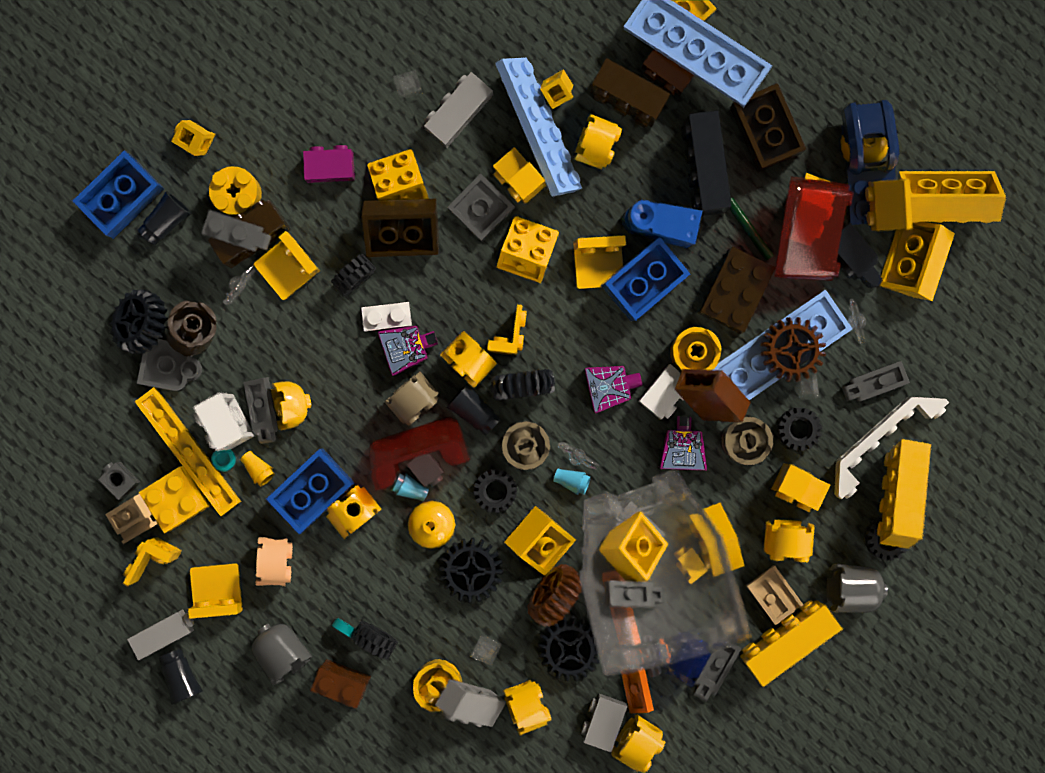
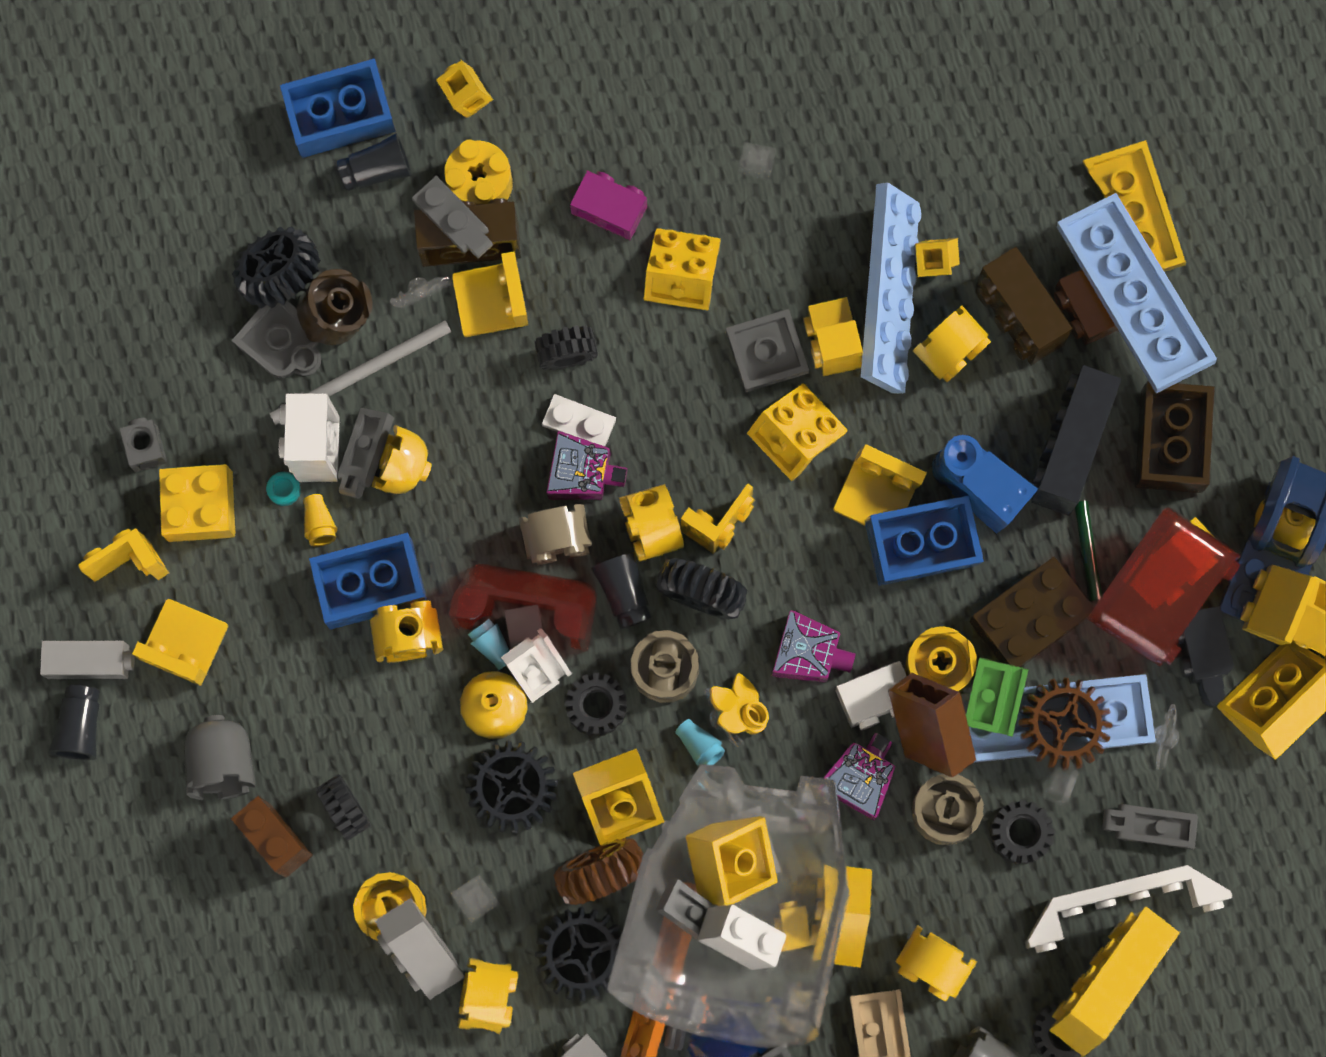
camera: 30 degrees right, 10 degrees down
(131, 518) = (131, 498): tan plate -> none
(187, 451) = (246, 456): yellow plate -> none
(232, 355) = (377, 363): none -> light grey bar
(272, 562) = (273, 641): light nougat brick -> none
(343, 627) = (313, 772): teal tile -> none
(400, 227) = (655, 321): dark brown brick -> none
(445, 488) = (536, 665): none -> white plate
(458, 109) = (802, 219): light grey brick -> none
(583, 445) = (739, 707): none -> yellow plate
(666, 593) = (741, 937): none -> white brick
(742, 355) = (996, 696): none -> bright green plate
(800, 486) = (985, 906): yellow brick -> none

